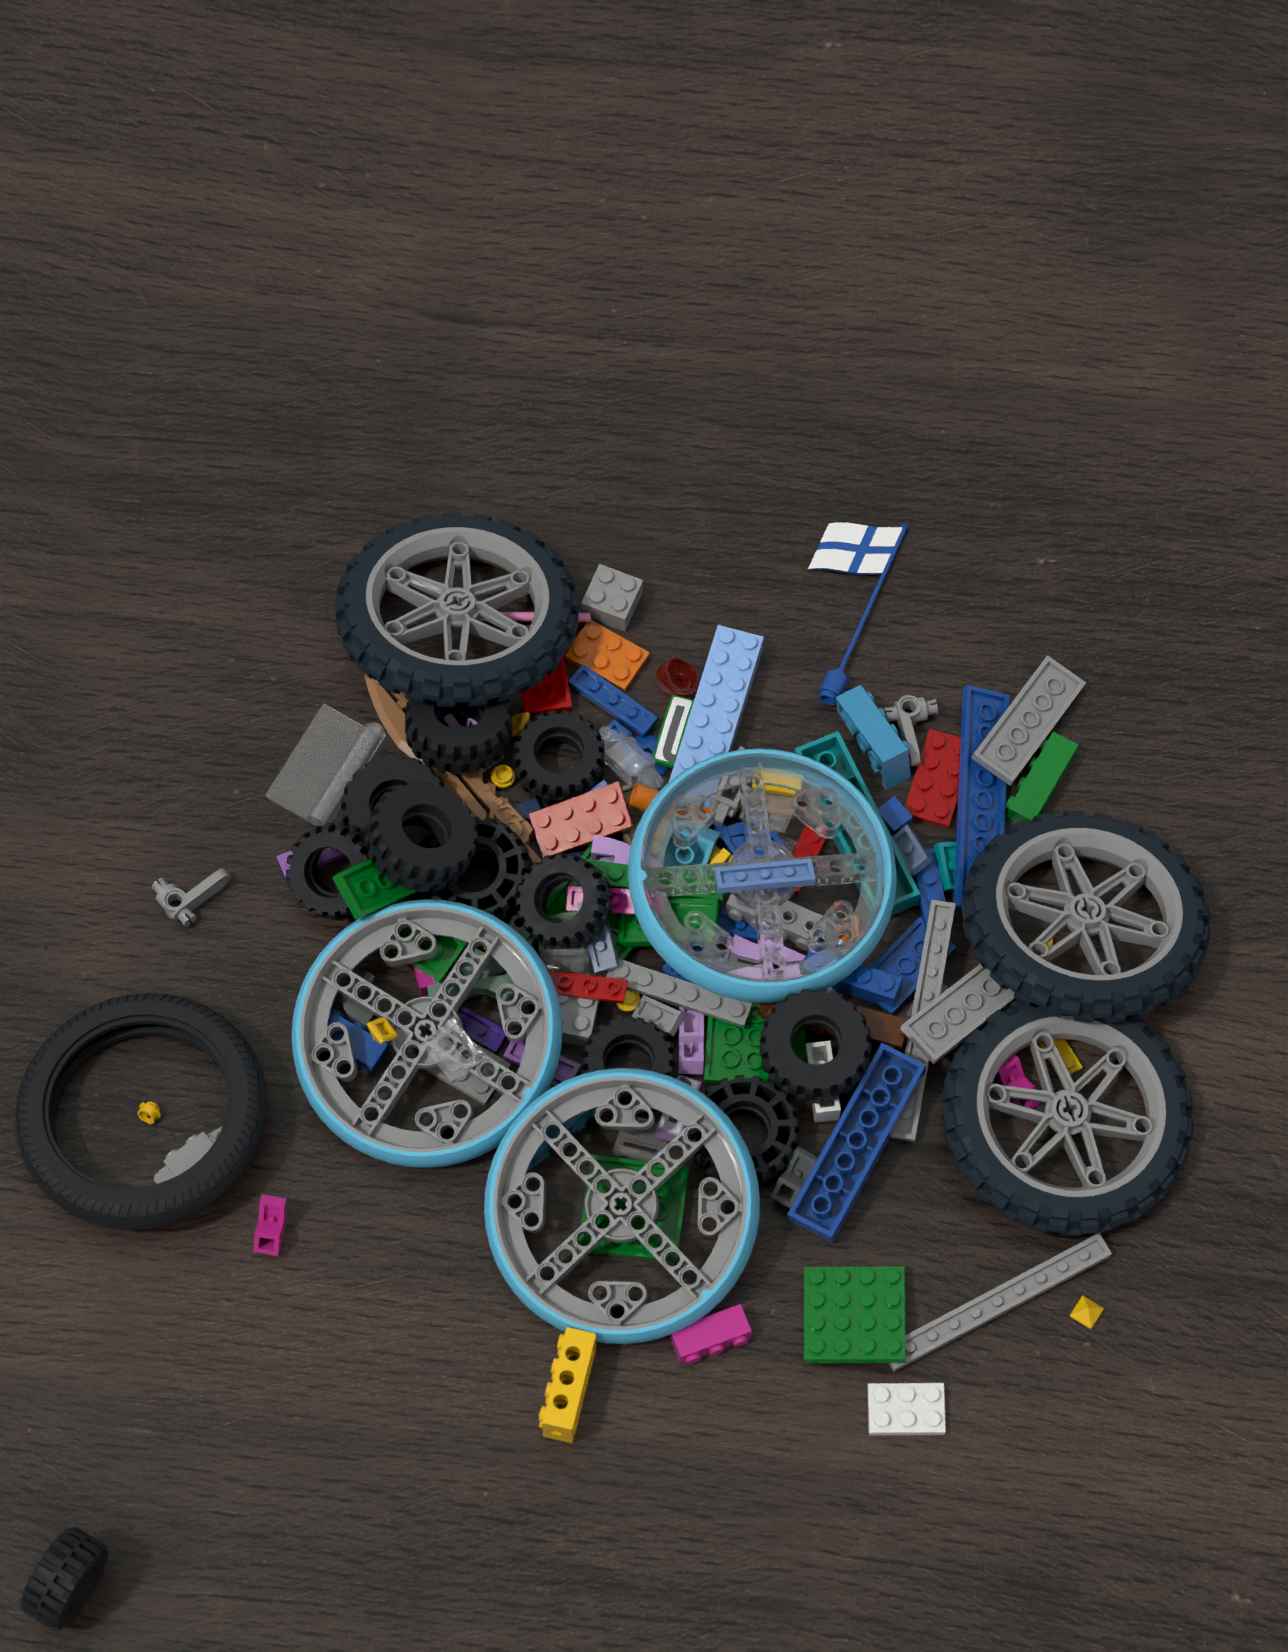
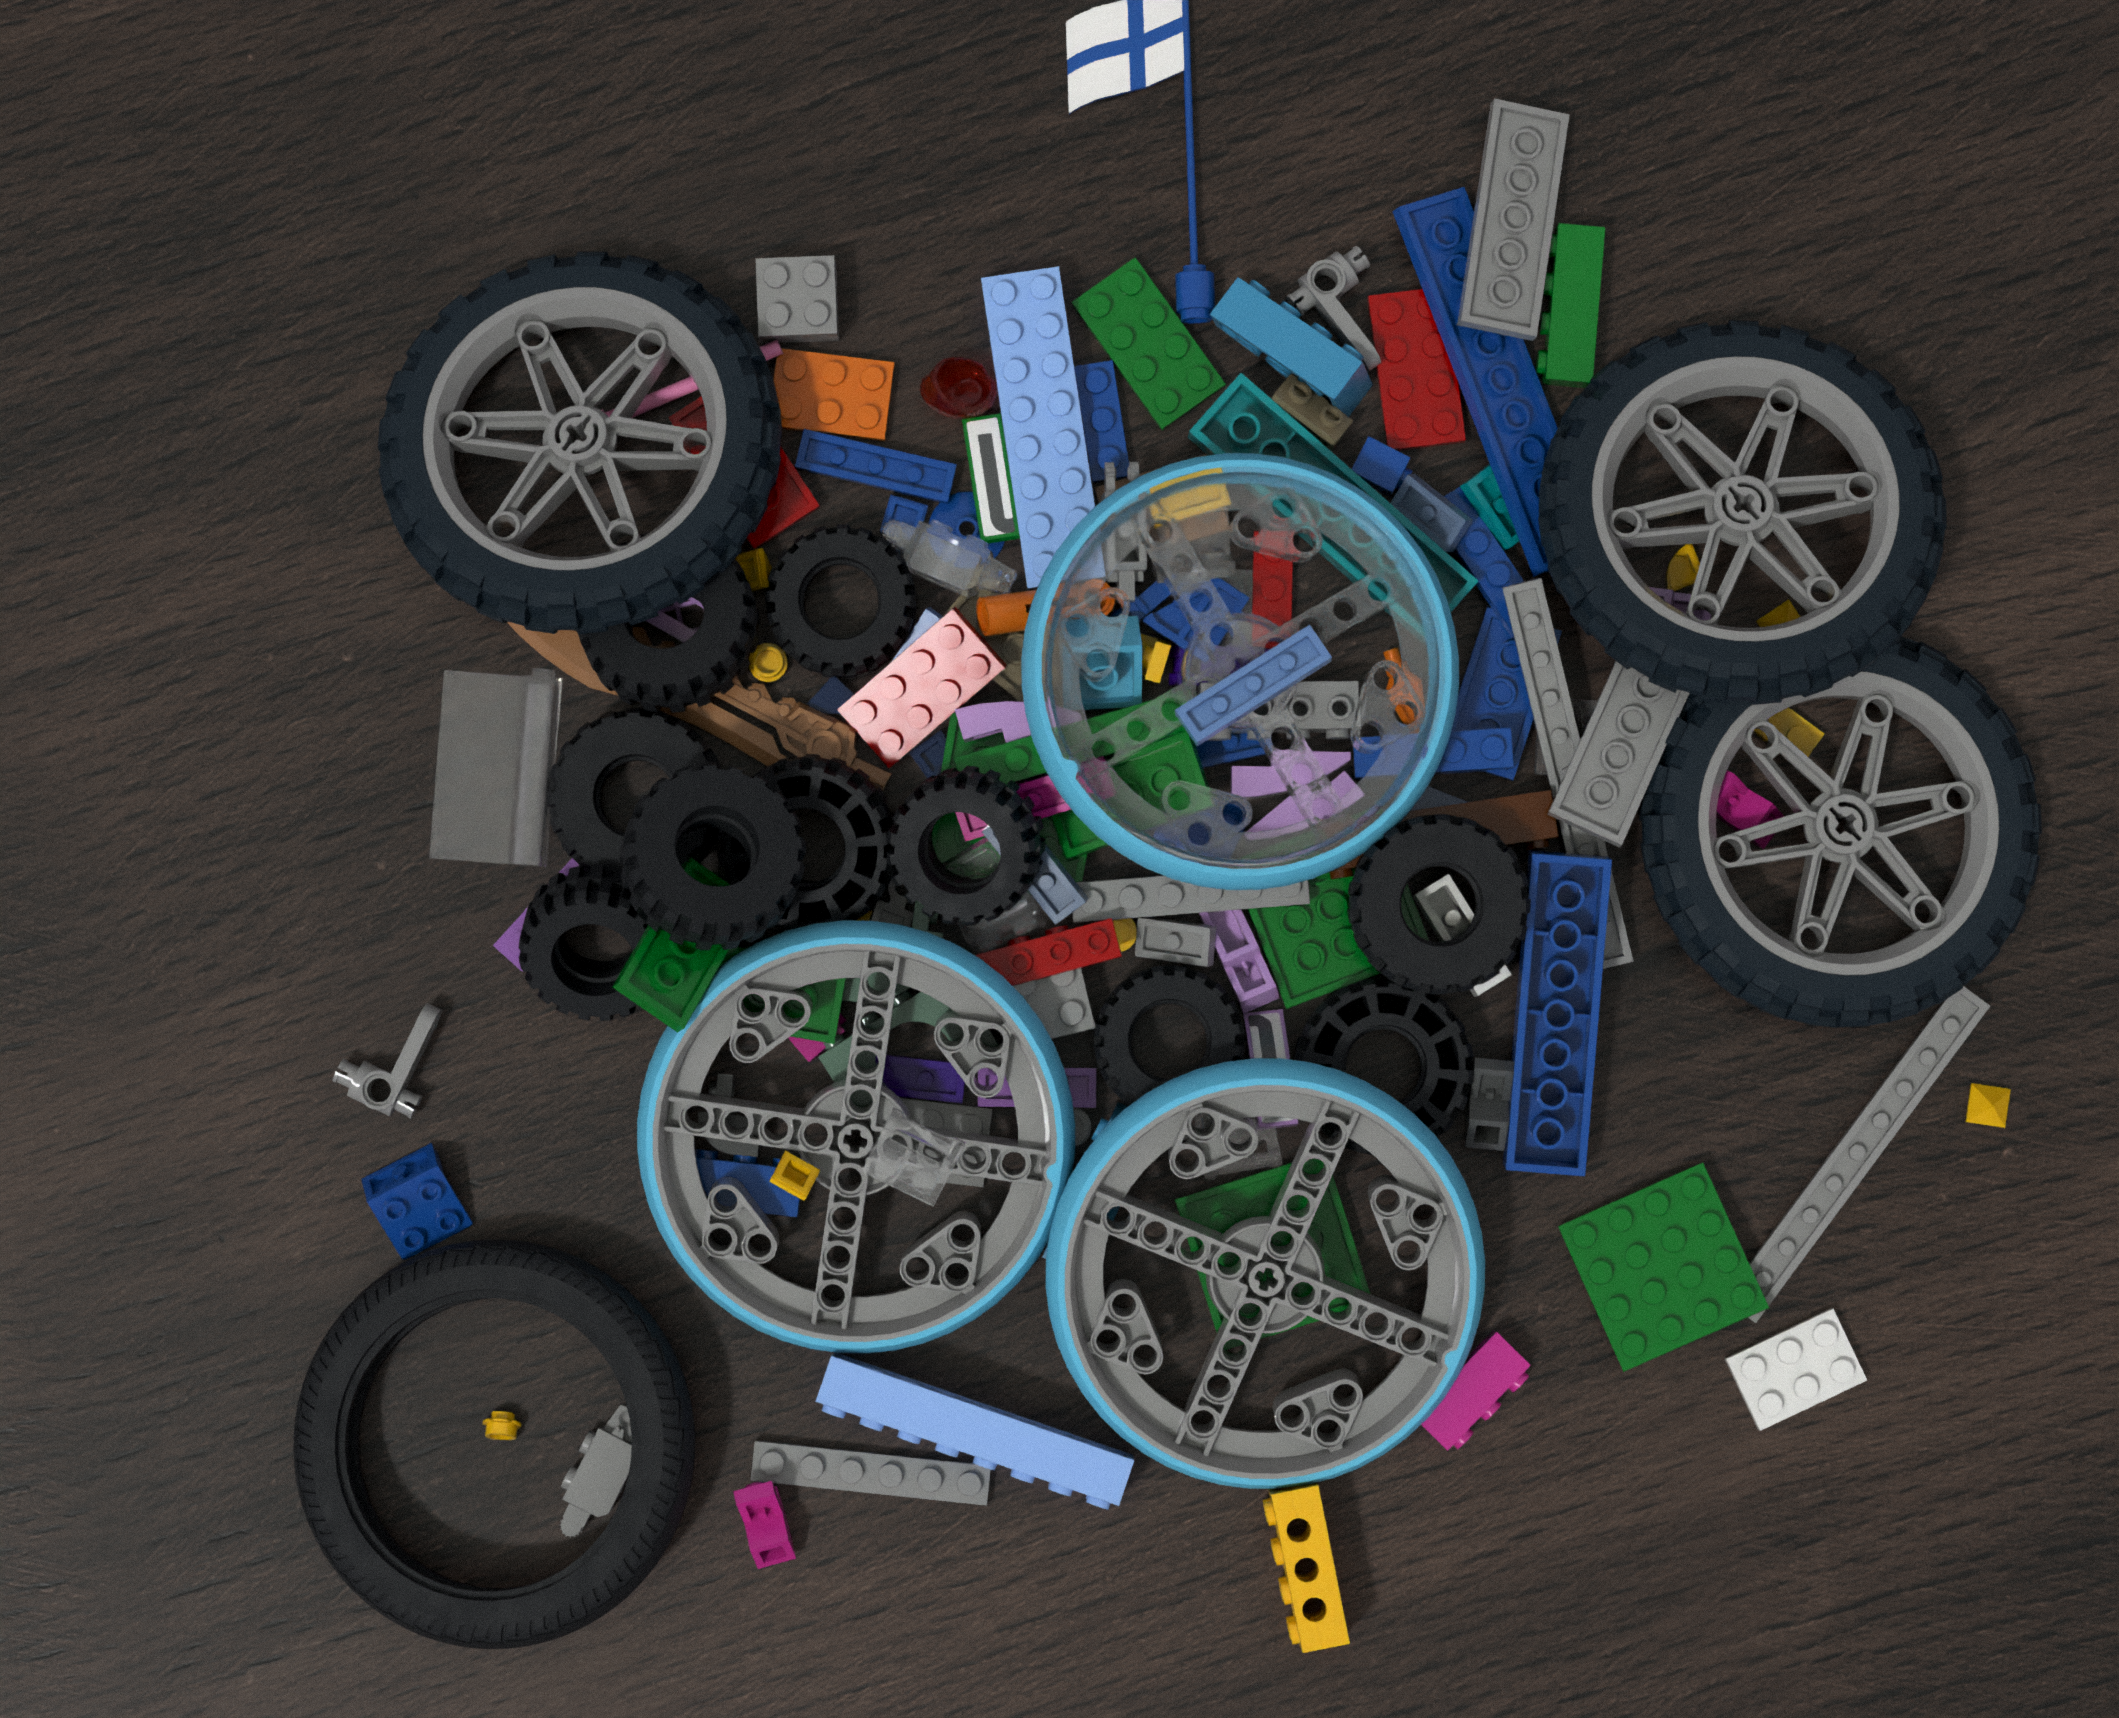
camera: 25 degrees left, 20 degrees up
(164, 970) = (415, 1202): none -> blue bracket
(346, 1231) = (870, 1472): none -> light grey plate
(415, 1225) = (975, 1429): none -> light blue brick
(752, 723) = (1101, 419): none -> blue plate
(794, 702) = (1148, 344): none -> green plate
(869, 771) = (1312, 411): none -> dark tan bracket

